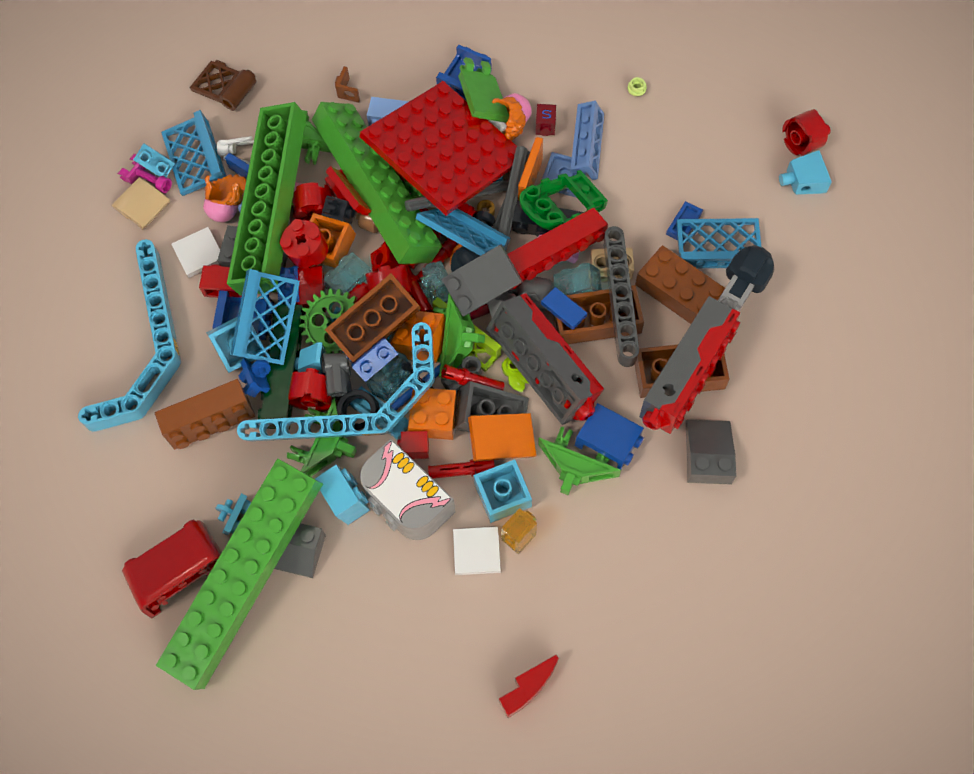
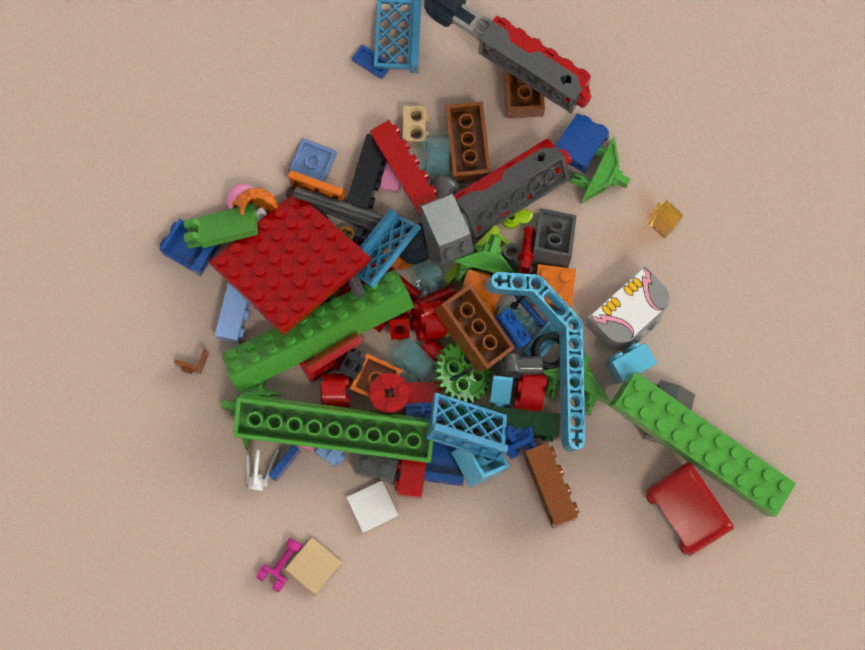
camera: 90 degrees left, 10 degrees up
(96, 416) = (460, 538): medium azure beam -> none
(154, 161) = (270, 552): medium azure hips -> none
(209, 149) = (254, 500): dark azure fence -> none
(223, 197) = (316, 478): orange hair -> none
(233, 90) = (183, 474): reddish brown piece -> none
(240, 507) = (640, 460): medium azure hips -> none
(415, 444) = (583, 304): red brick -> none
(460, 469) = (604, 266): red pin -> none
(476, 551) = (675, 258): white tile -> none
(502, 436) = (580, 229): orange tile -> none
(502, 491) = (628, 231): medium azure brick -> none
(529, 685) = (788, 221): red slope -> none
(545, 119) = (253, 173): dark red brick -> none
(545, 213) = (365, 176): green slope -> none
(563, 308) = (467, 166): blue tile -> none
(587, 139) = (279, 137): medium blue fence -> none
(621, 304) = (468, 111): dark grey beam -> none
(637, 86) = (220, 83): yellowish green plate -> none
(677, 284) = (443, 70): dark orange brick -> none
(710, 452) = (601, 61): dark grey slope -> none

